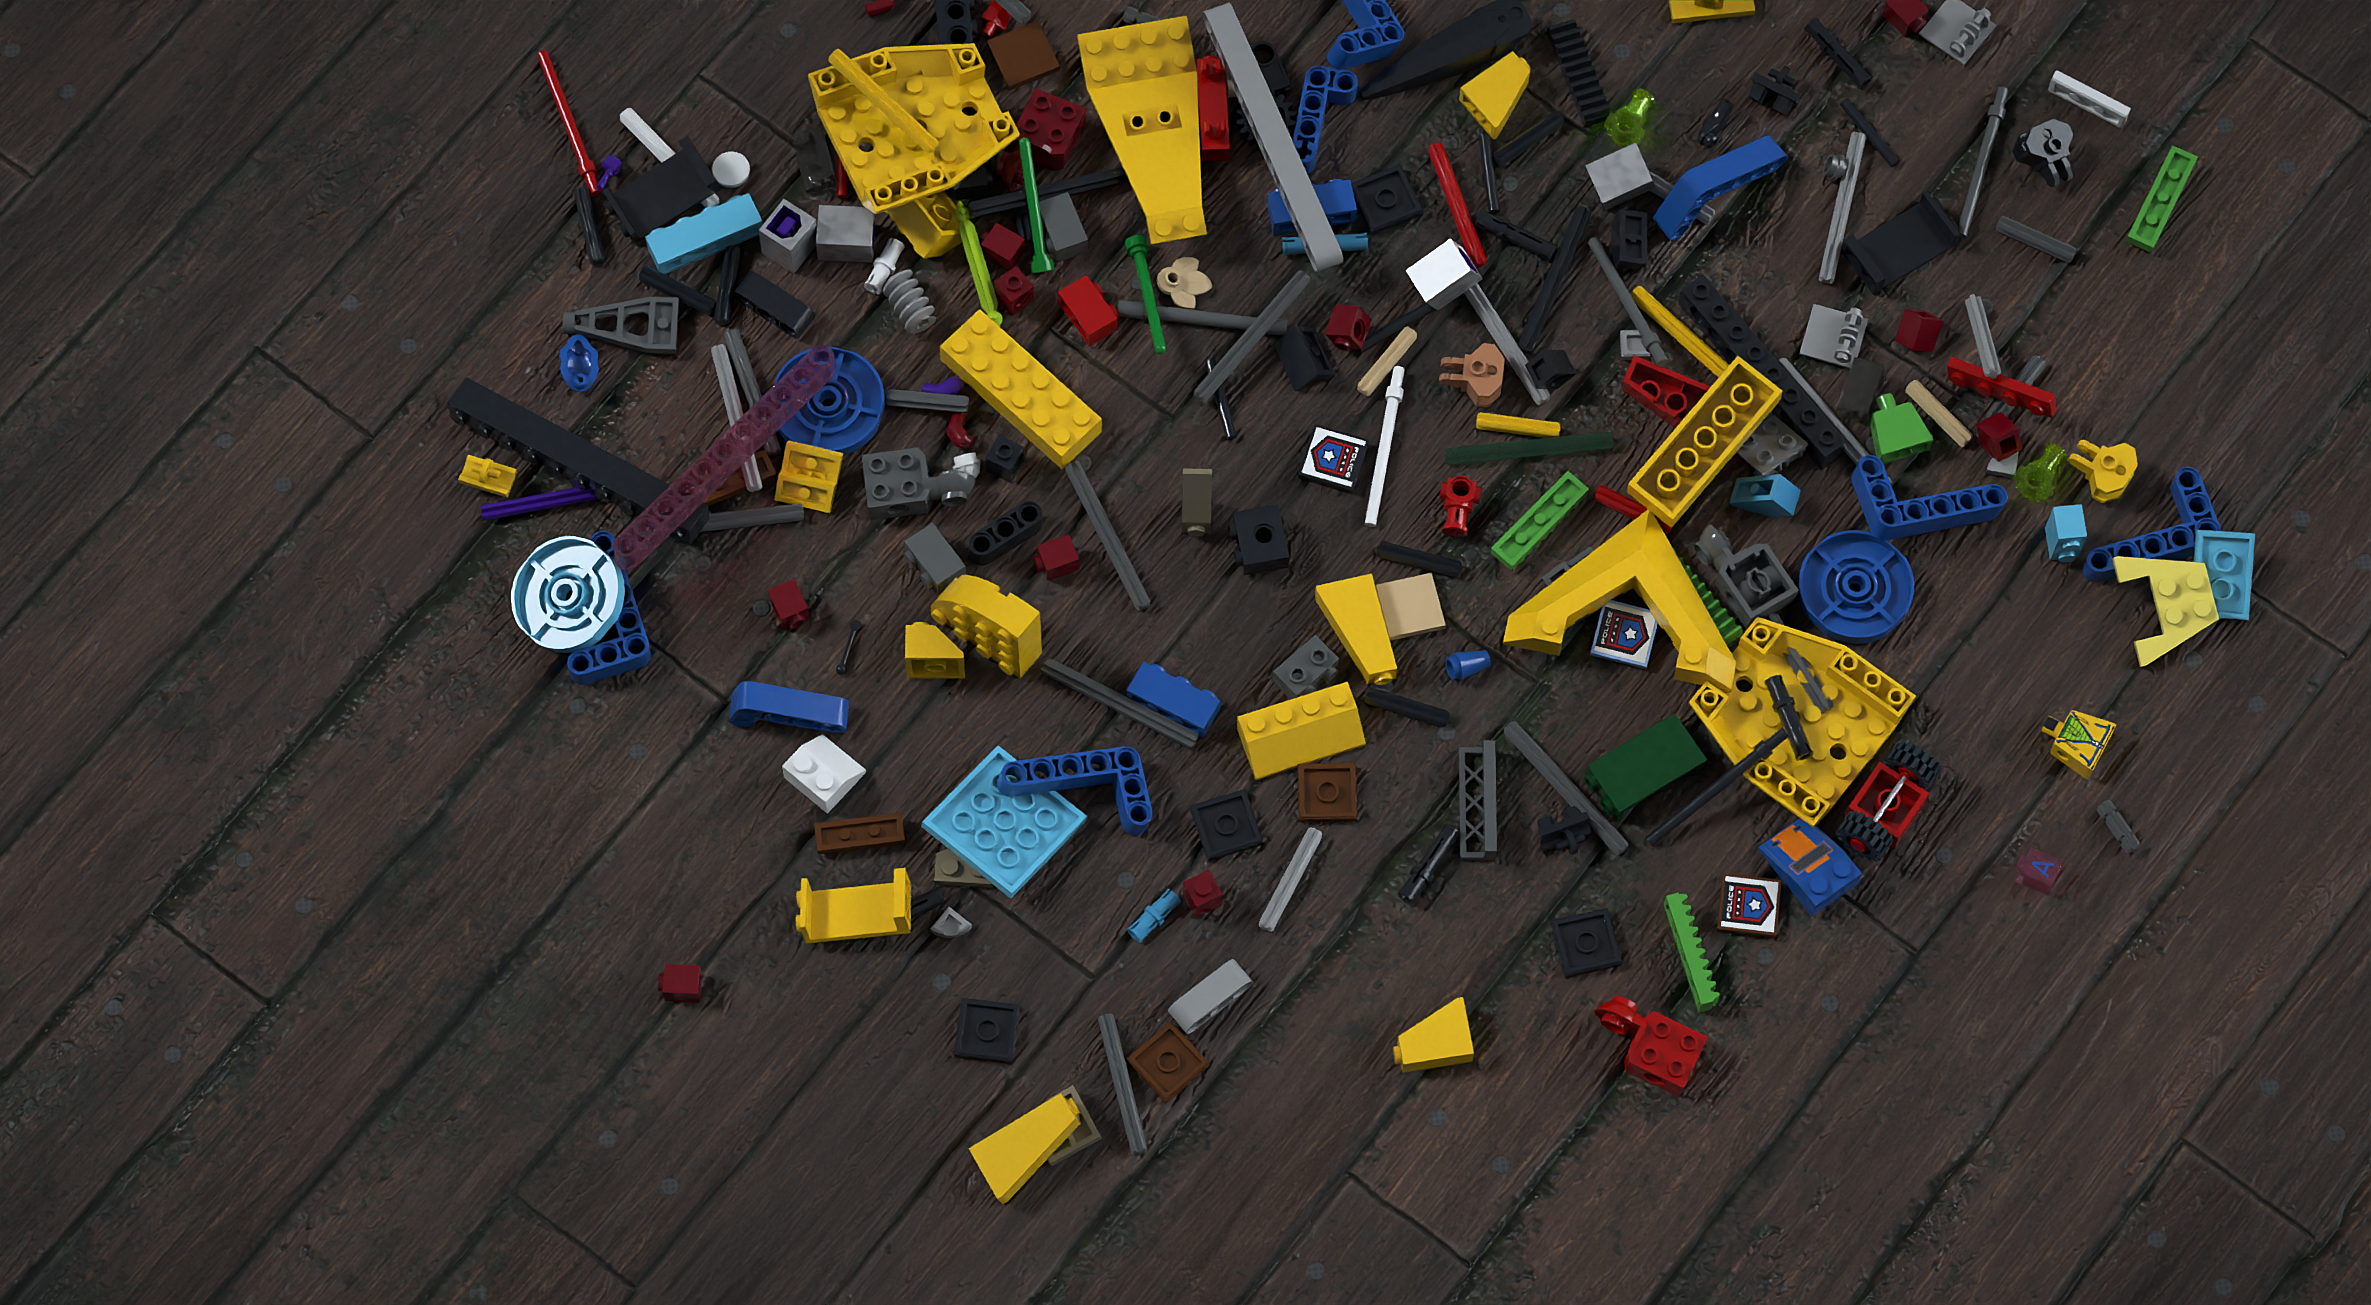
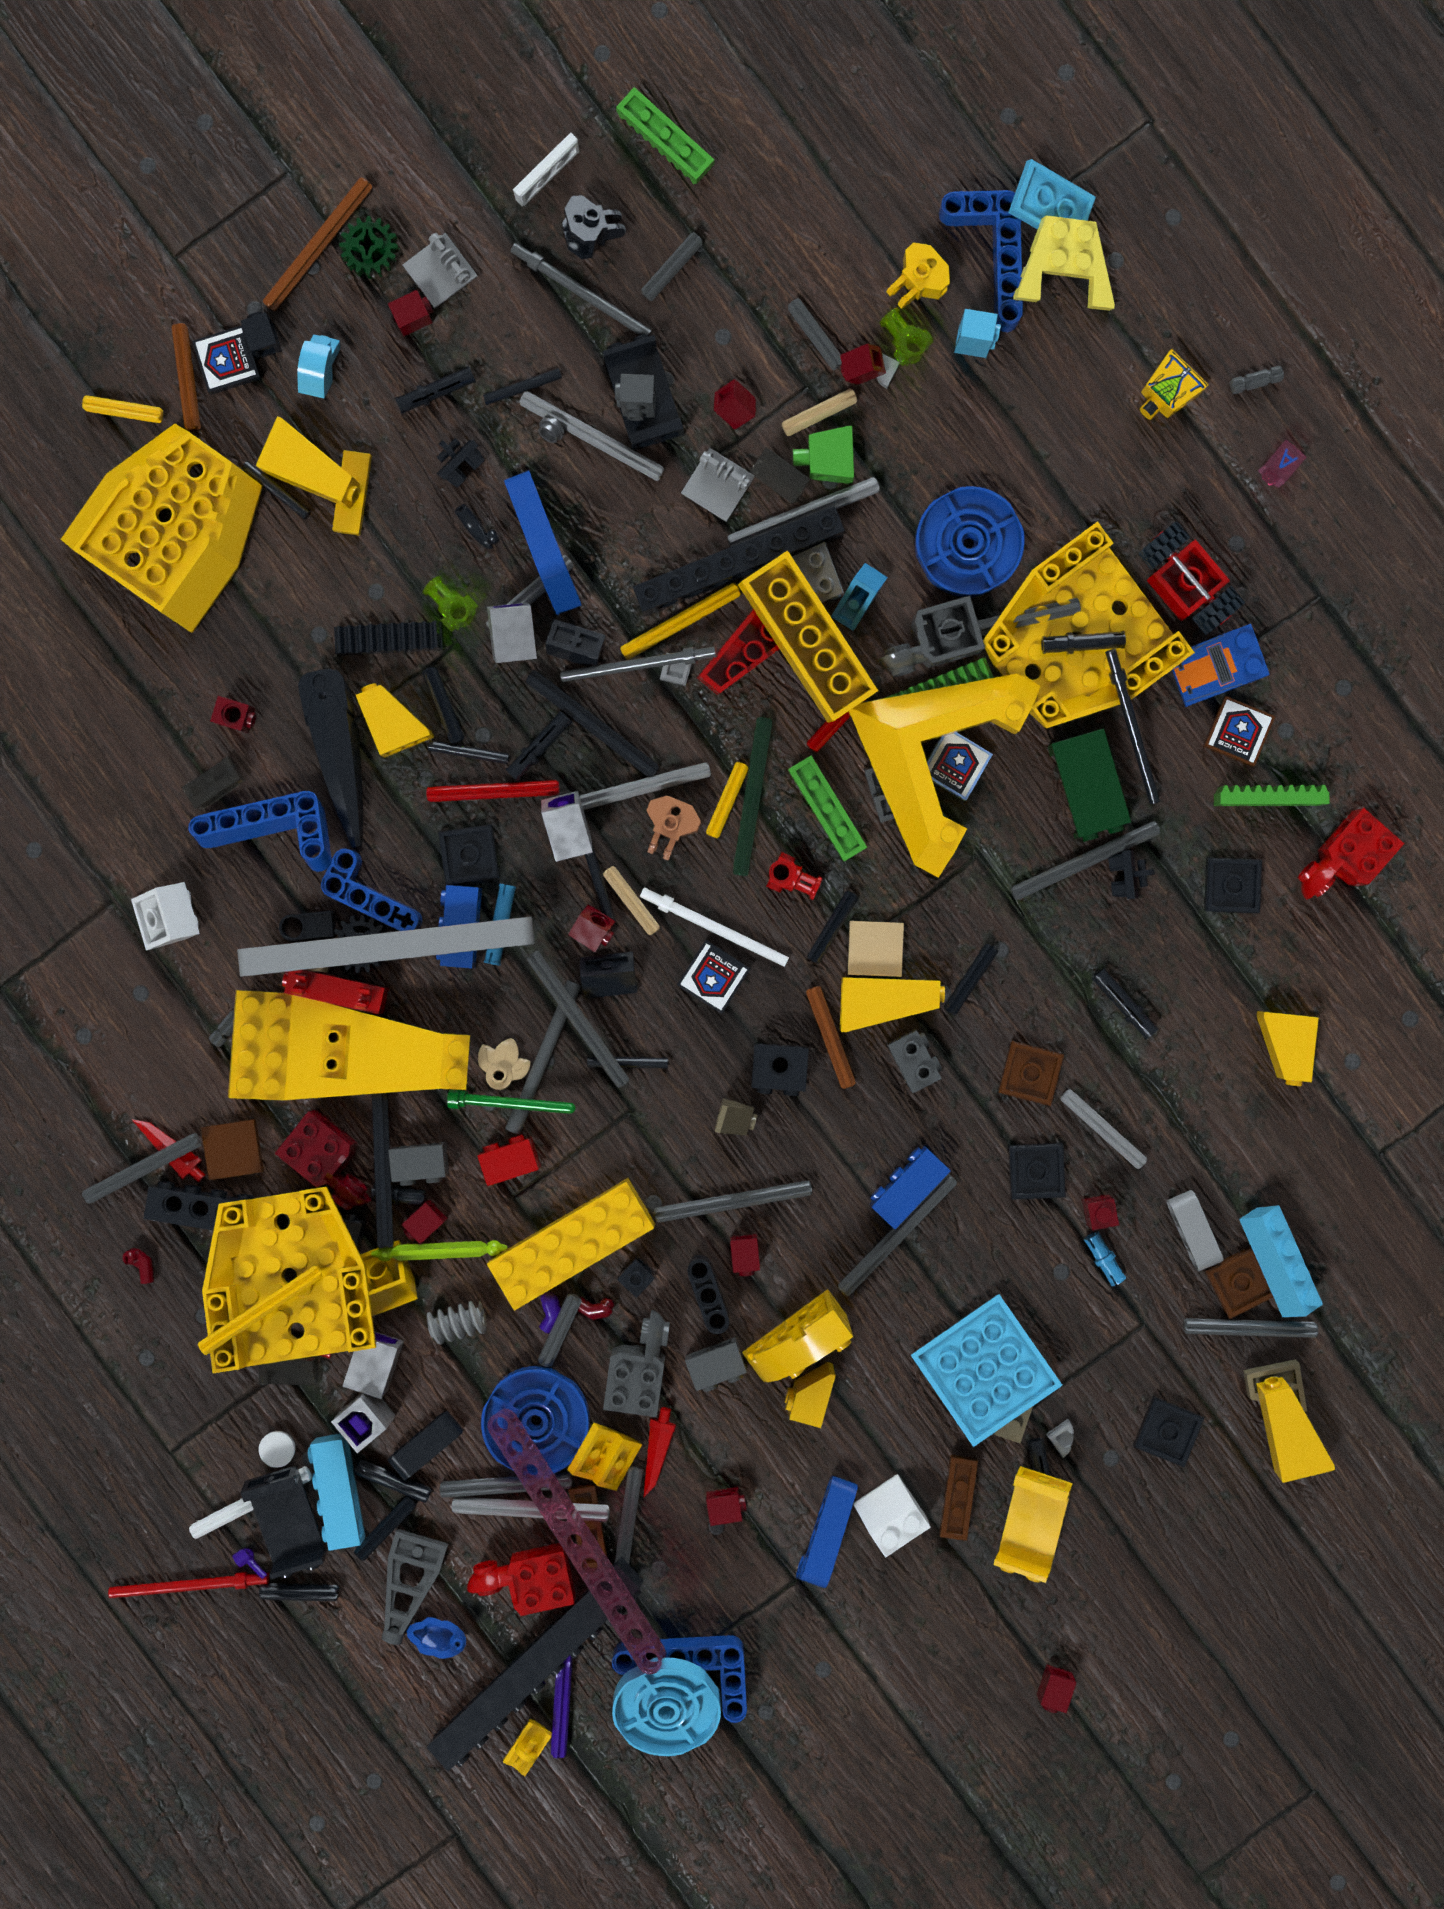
camera: 70 degrees left, 20 degrees up
(663, 435) = (536, 1579): none -> red brick
(842, 527) = (659, 1440): none -> red bar
(855, 627) = (758, 1449): black hinge -> none
(884, 266) = (413, 1334): white pin -> none
(968, 464) = (632, 1311): white plate -> none
(1014, 290) = (472, 1223): dark red brick -> none
(1041, 260) = (450, 1190): green piece -> none
(1085, 776) = (964, 1288): blue beam -> none
(1203, 1087) = (1281, 1261): none -> medium azure brick
(1301, 730) = (970, 1081): yellow slope -> none
(1305, 586) = (830, 1037): none -> dark orange axle
(1464, 664) = (946, 915): blue cone -> none
(1488, 795) = (1083, 933): dark grey fence -> none
(1550, 369) = (685, 755): black brick -> none
(1892, 231) = (636, 396): none -> dark grey brick
(1921, 508) = (920, 457): blue beam -> none
(1983, 336) = (763, 346): light grey axle -> none
(2004, 388) = (826, 338): red plate -> none

